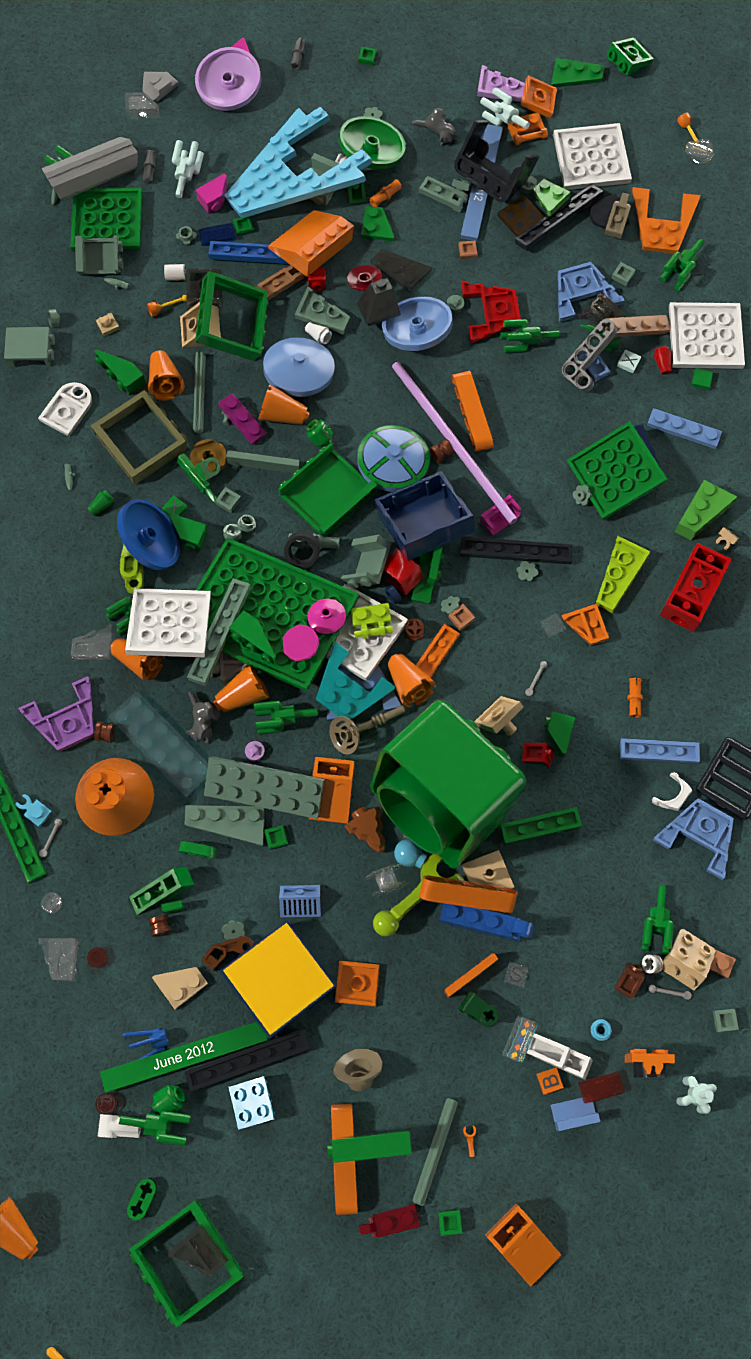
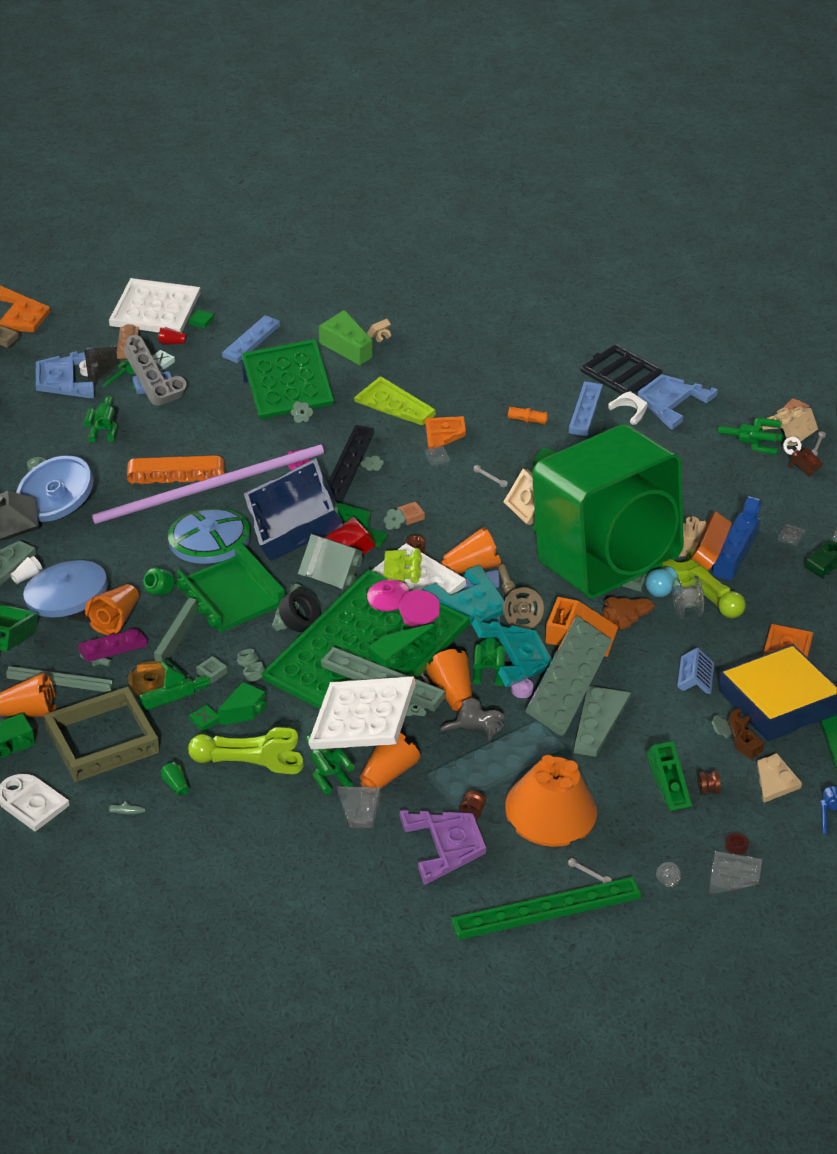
camera: 80 degrees left, 30 degrees down
(35, 812) = (554, 880): medium azure plate -> none
(148, 534) = (245, 722): blue dish -> none
(173, 907) = (690, 768): green tile -> none
(197, 850) = (627, 743): green beam -> none
(276, 837) = (623, 682): green tile -> none
(290, 745) = (522, 647): none -> teal wing
(393, 594) = (371, 556): dark blue tile -> none
(437, 650) = (437, 535): orange tile -> none
(443, 450) = (214, 496): copper wheel -> none
(470, 975) = (790, 560): orange tile -> none
(498, 305) = (57, 434): red wing -> none
(623, 274) = (59, 345): sand green plate -> none
(682, 264) = (71, 304): green plant -> none
(687, 602) = (448, 355): red plate -> none

